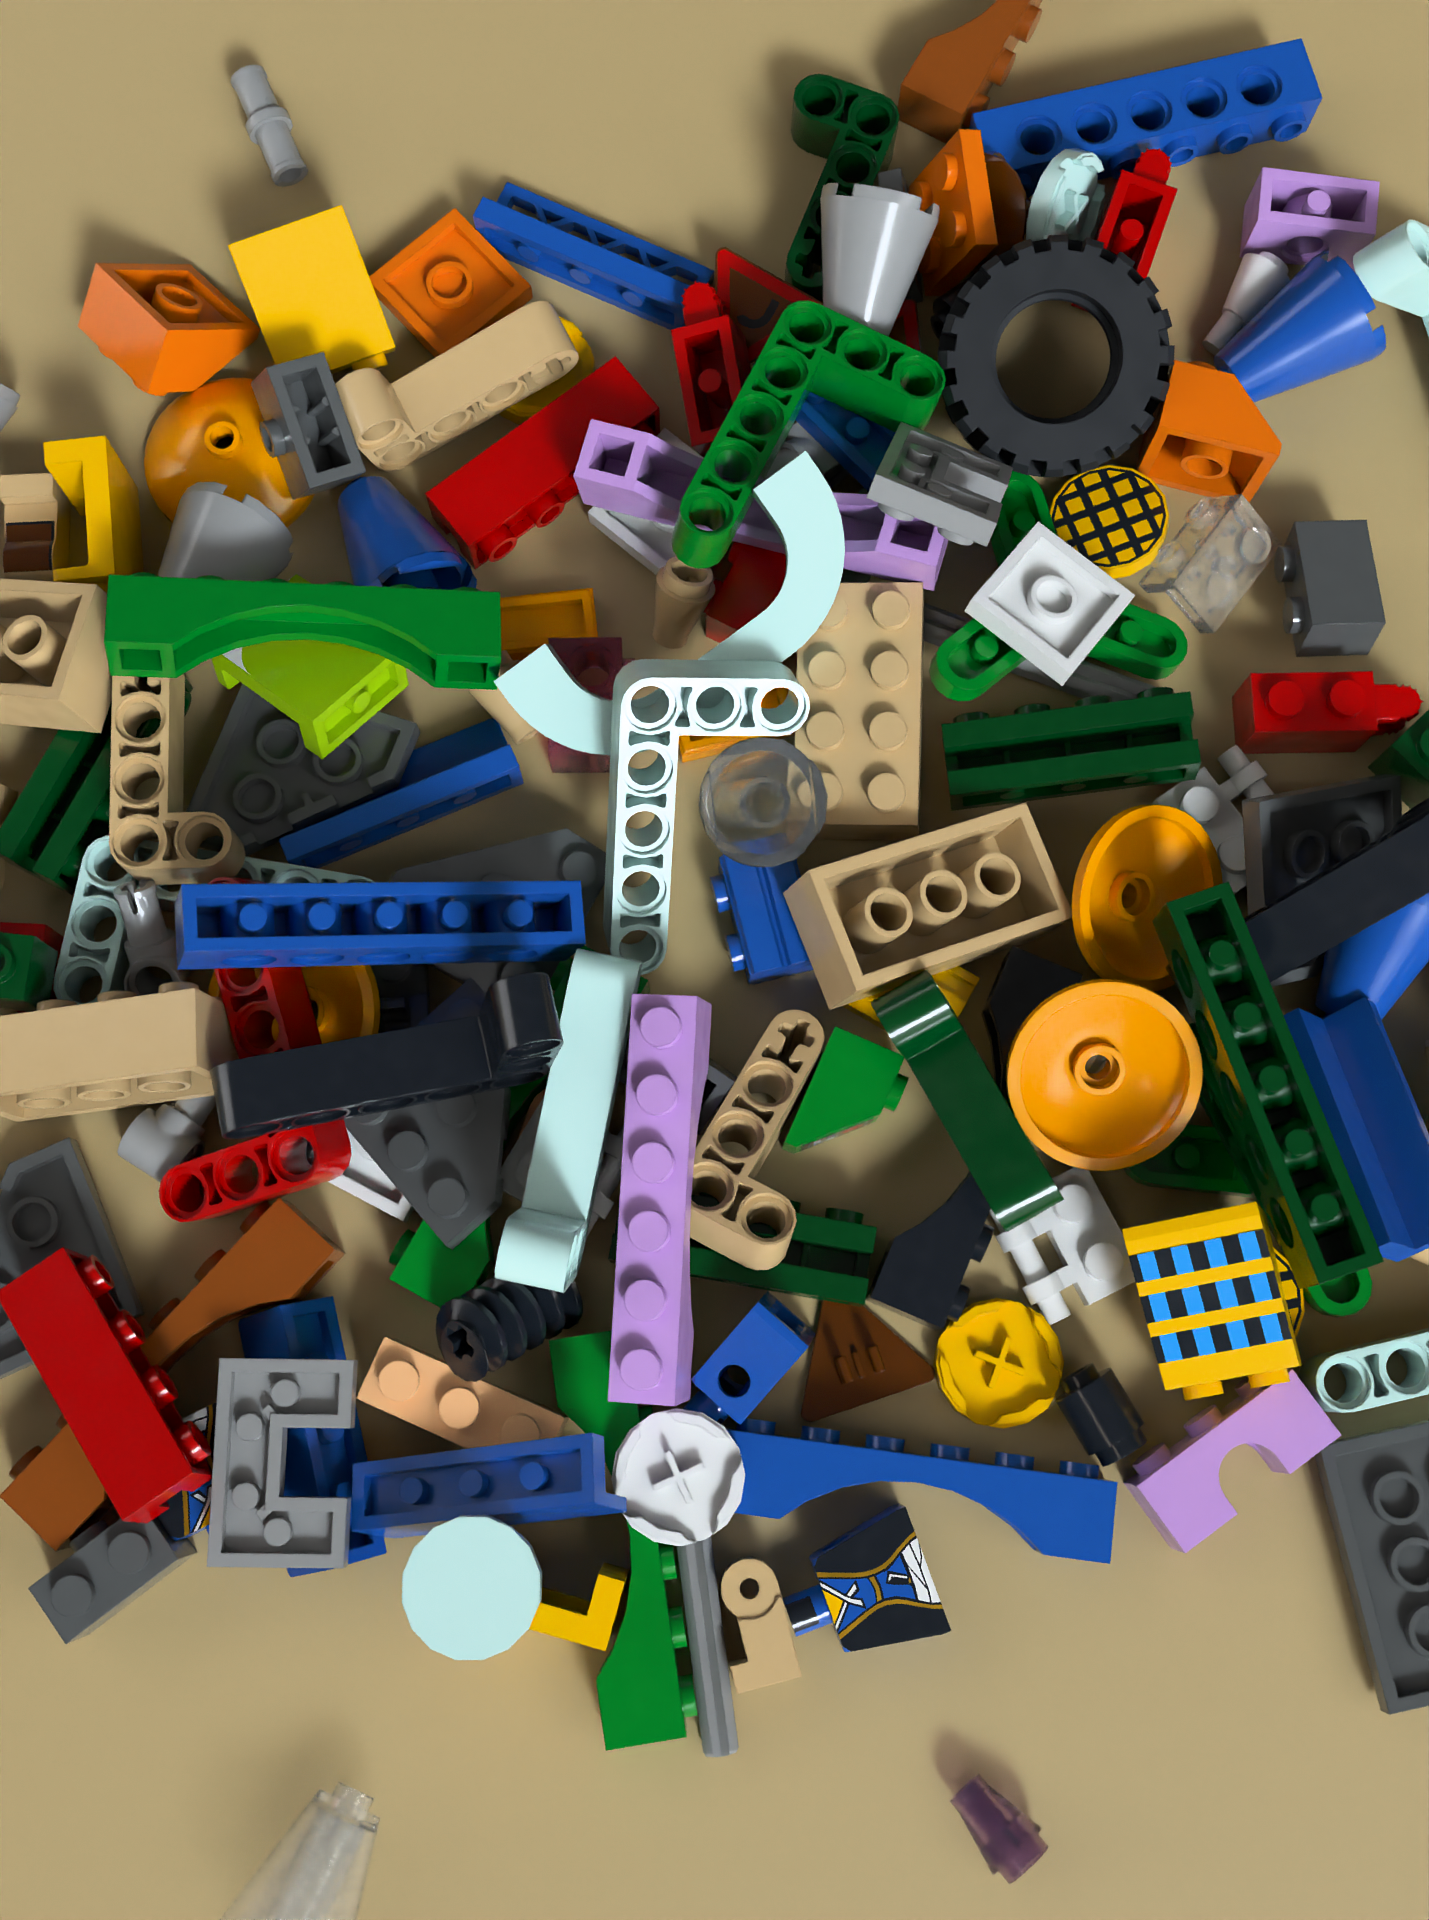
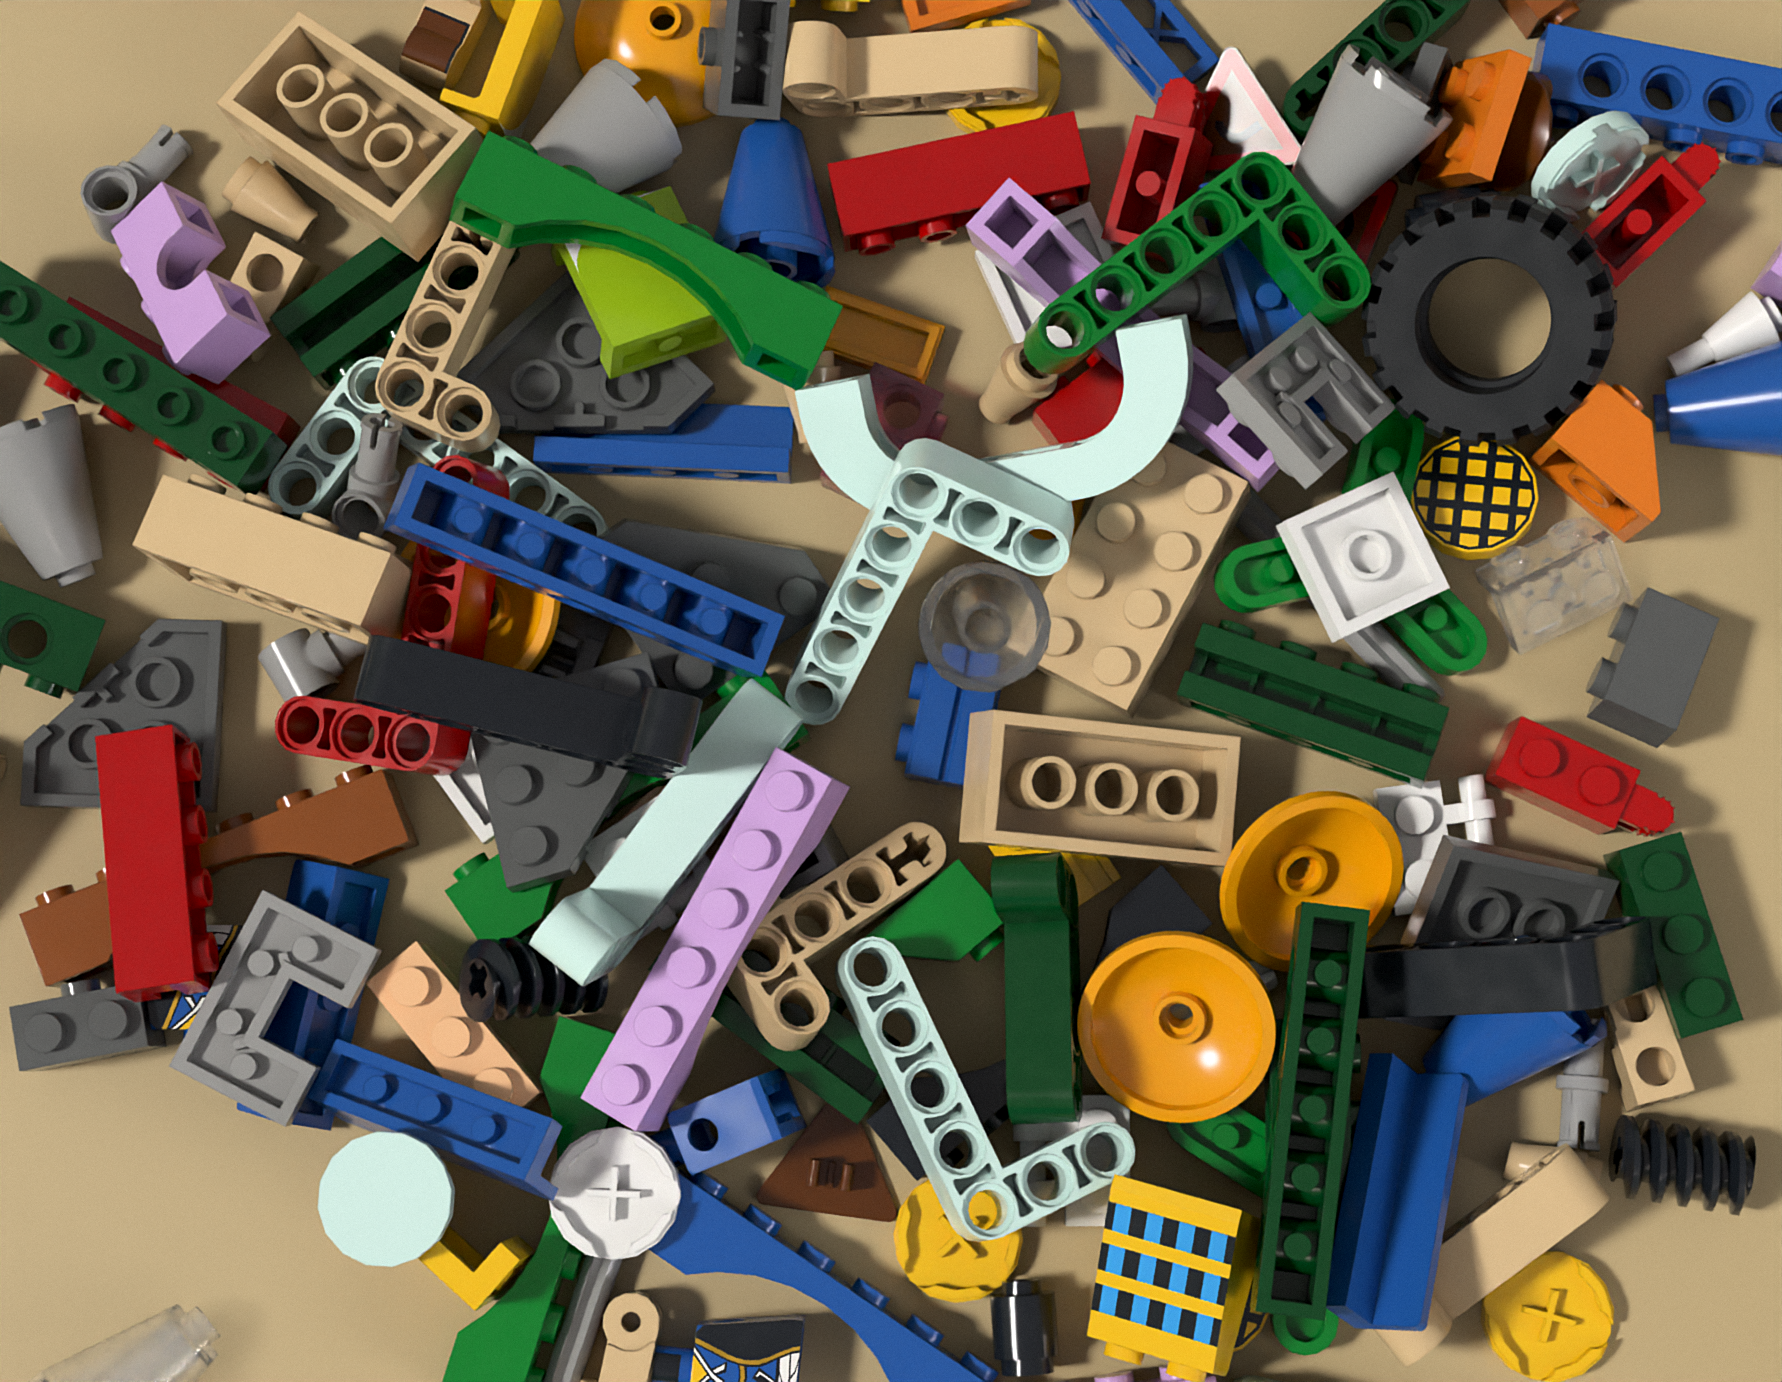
camera: 35 degrees right, 5 degrees up
(950, 1246) = (955, 1112): none -> light aqua beam

